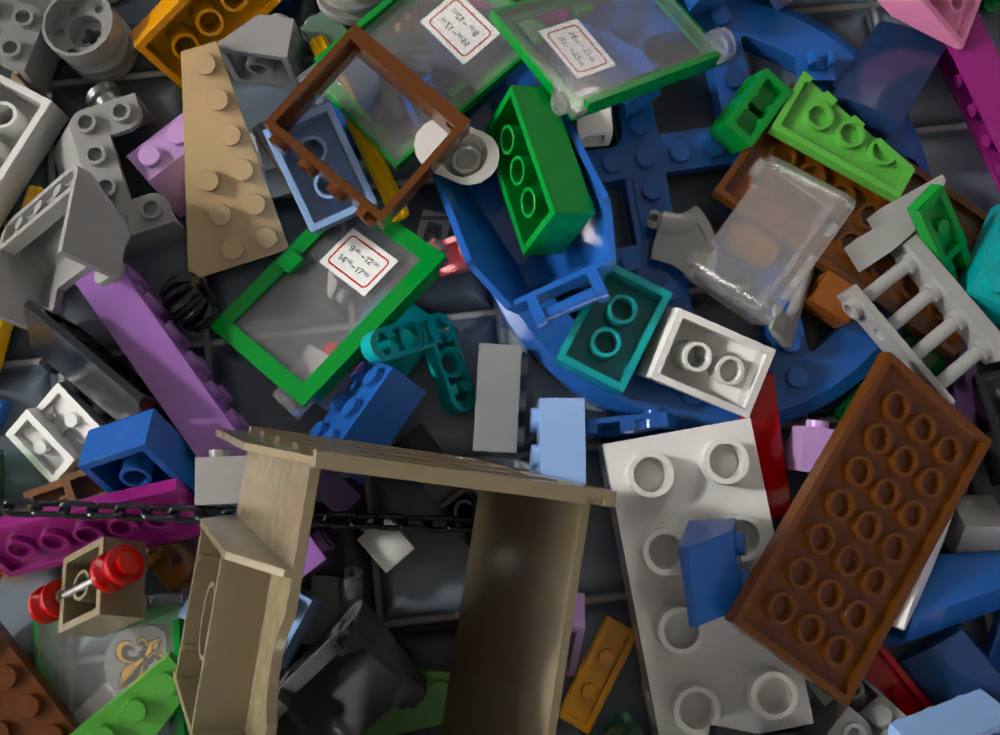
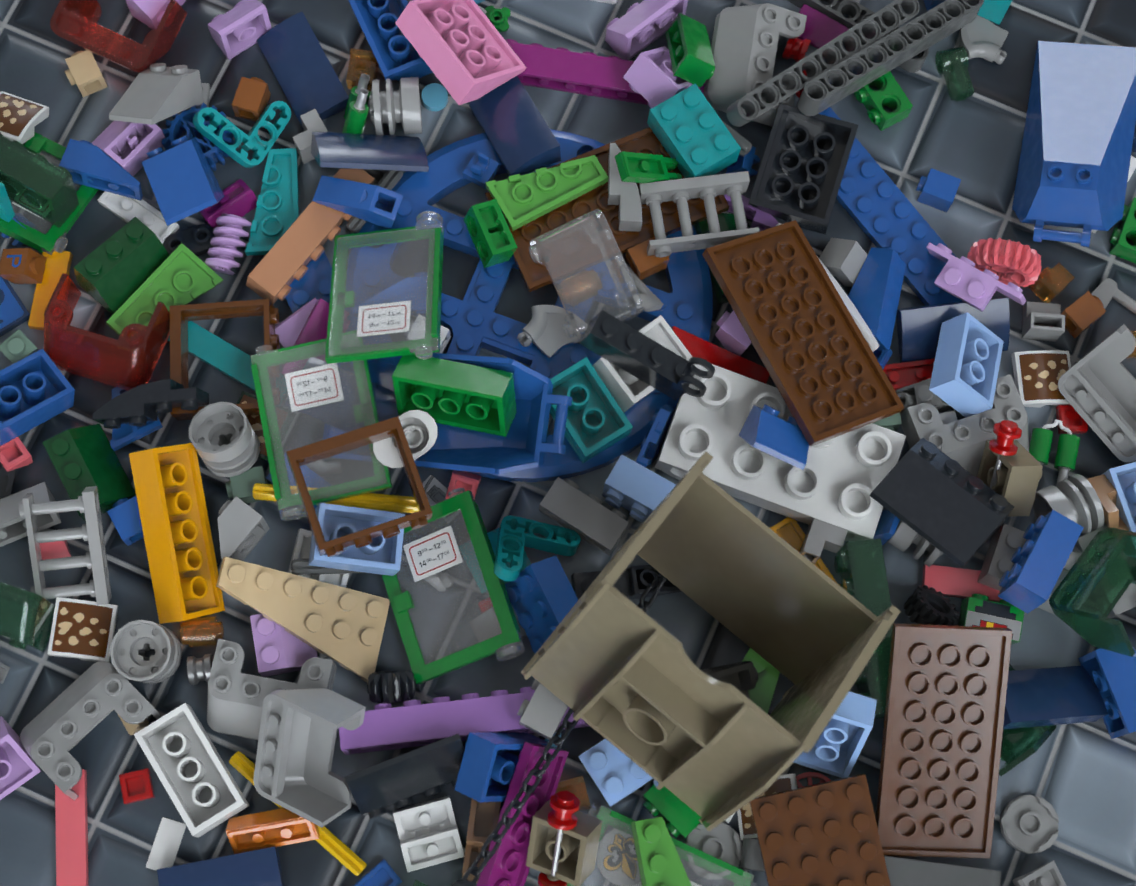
camera: 60 degrees left, 5 degrees down
(148, 81) = (201, 631): none -> clear orange brick
(628, 682) = (822, 536): none -> light grey piece
(712, 358) = (645, 357): none -> black hinge

